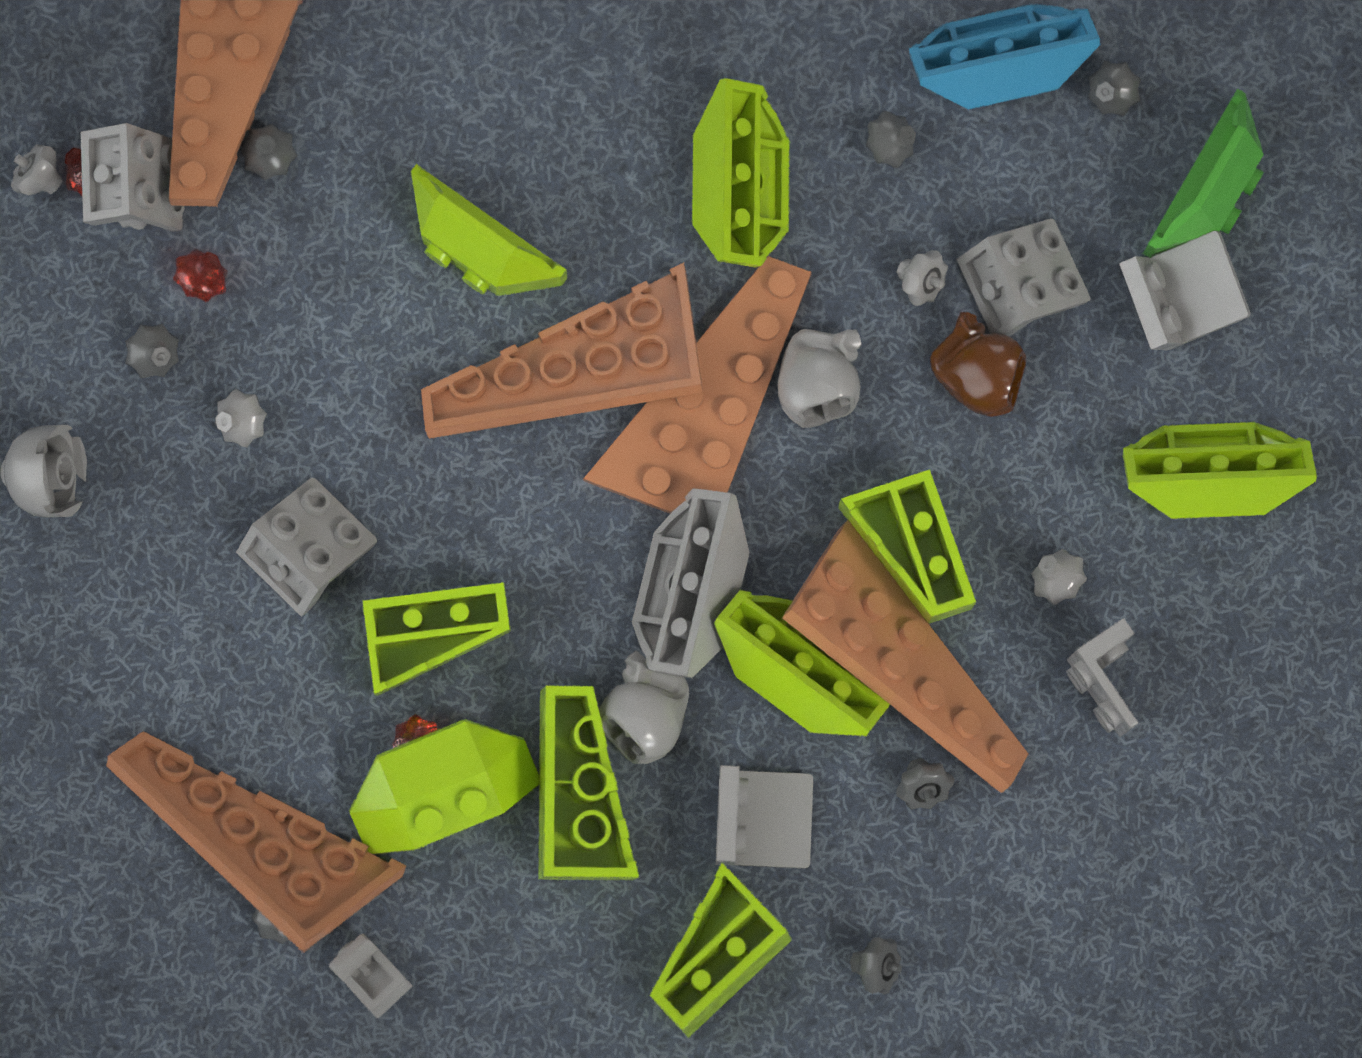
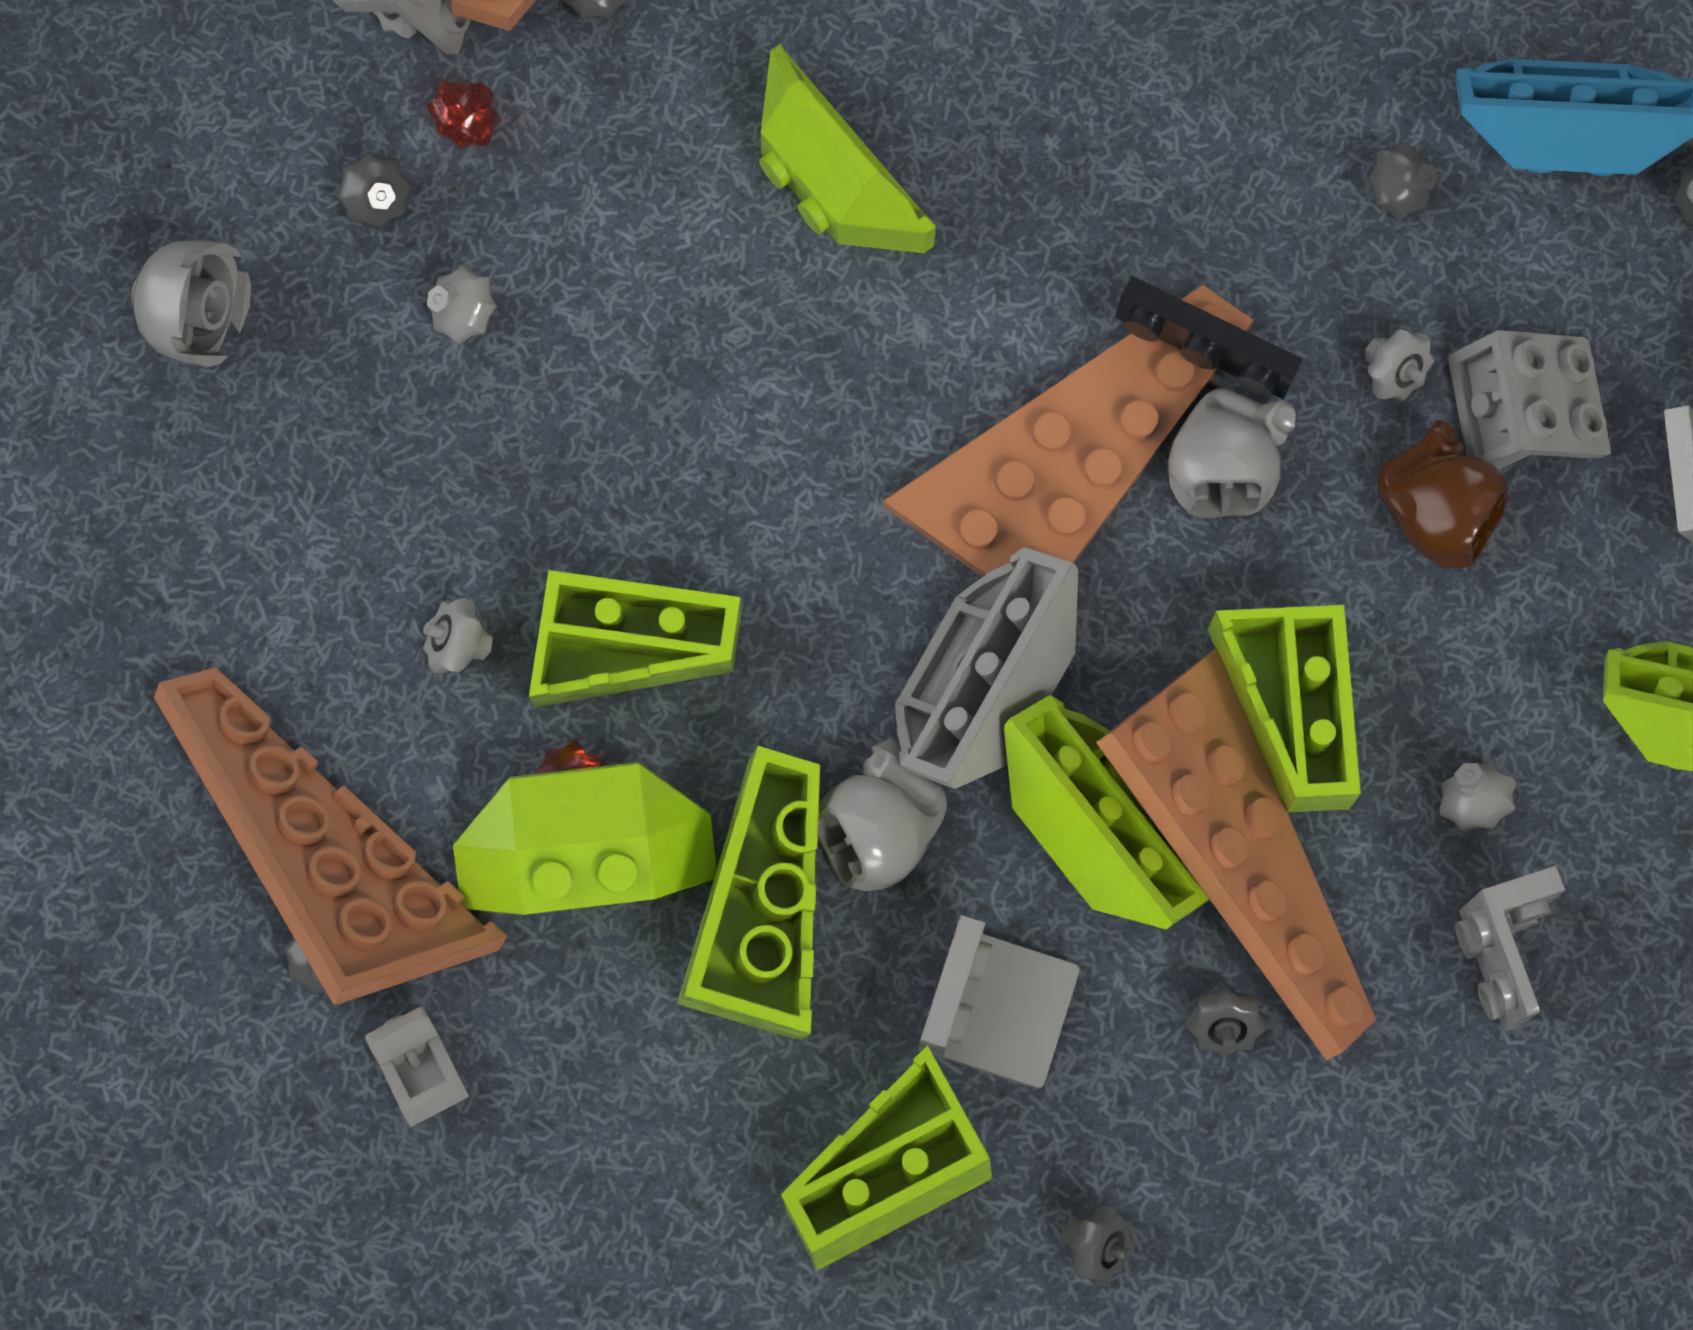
camera: 15 degrees right, 5 degrees down
(304, 544) = (495, 486): light grey bracket -> none
(307, 662) = (455, 637): none -> light grey piece
(591, 362) = (931, 354): nougat wing -> none
(740, 175) = (1195, 169): lime wedge -> none
(782, 301) = (1207, 339): none -> black plate

